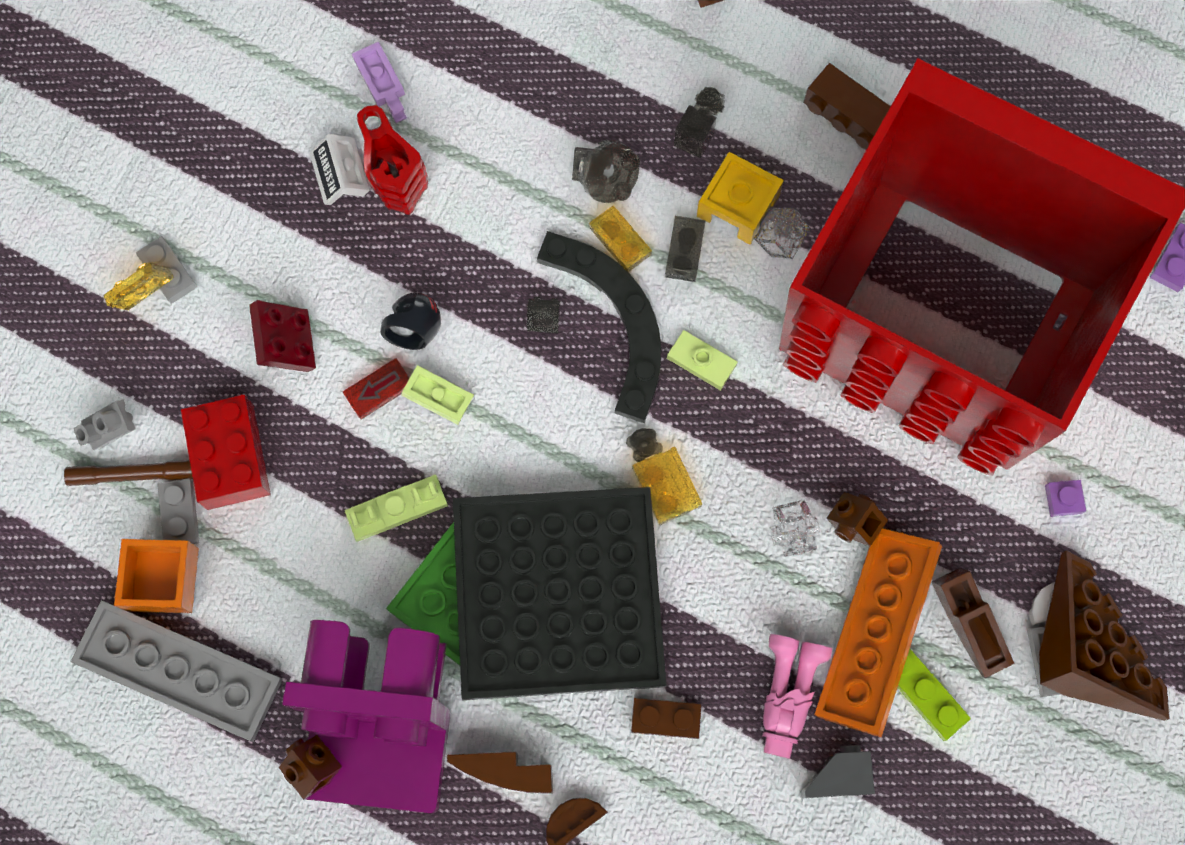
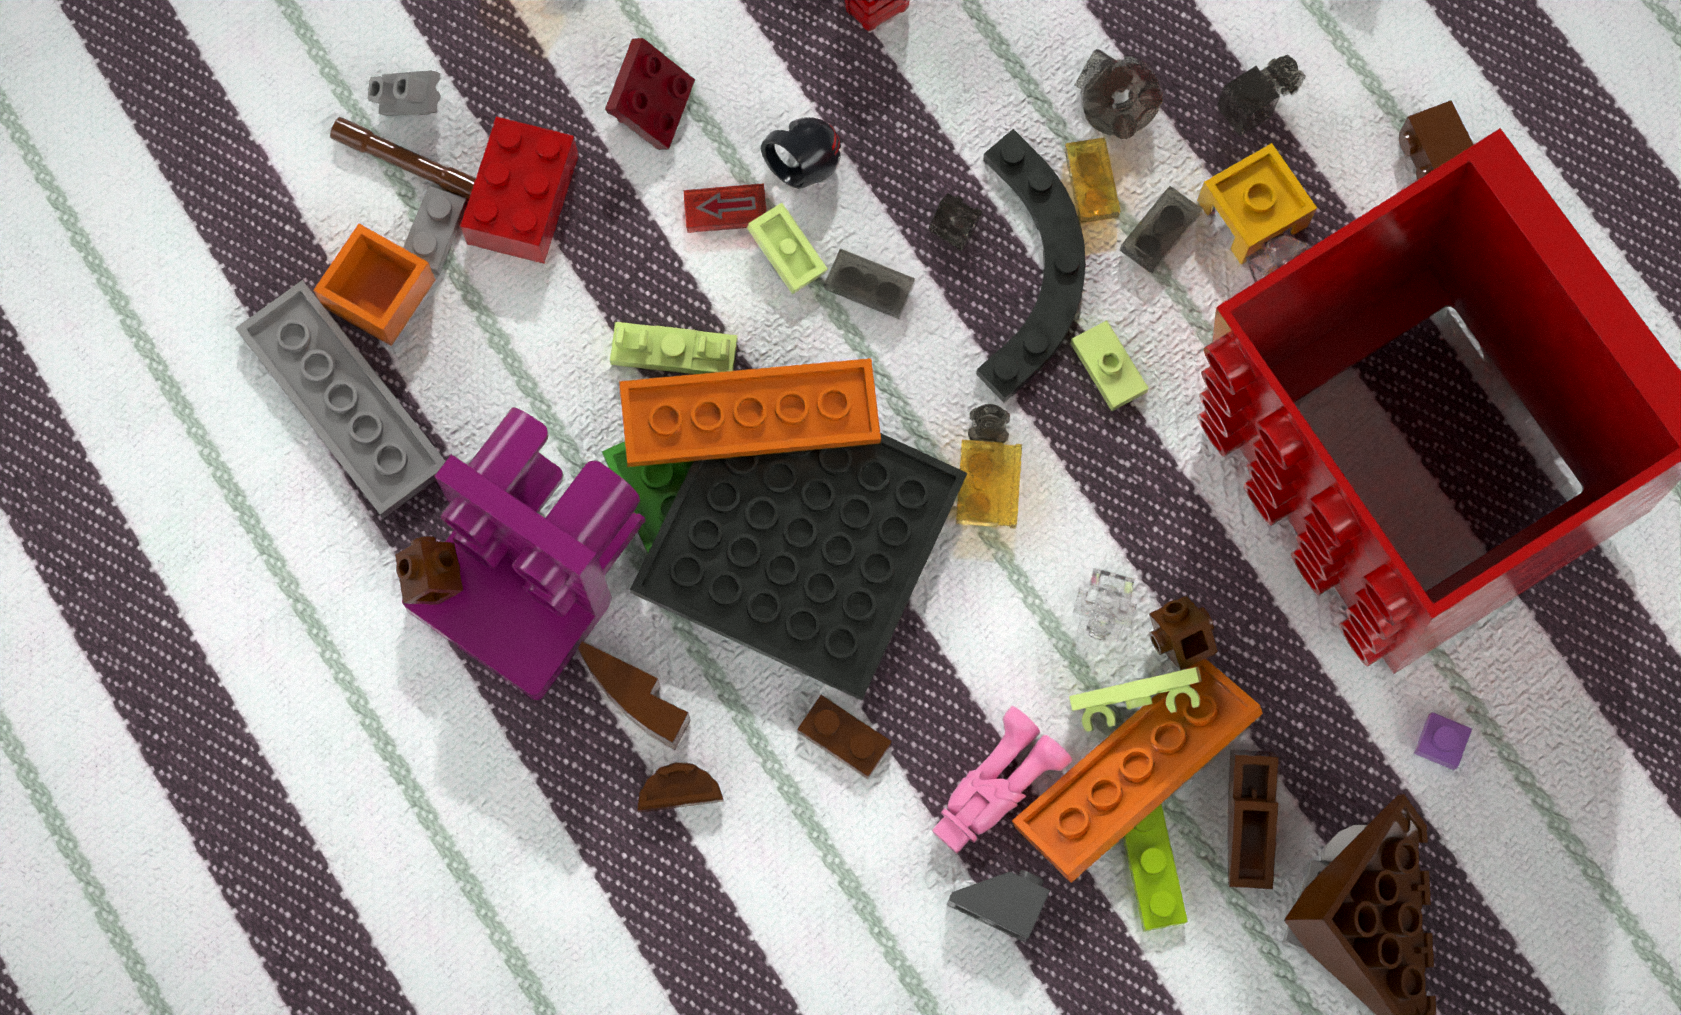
camera: 25 degrees right, 0 degrees up
(477, 527) = (749, 412): none -> orange plate
(508, 389) = (869, 283): none -> clear smoke plate
(850, 579) = (1136, 695): none -> yellowish green plate

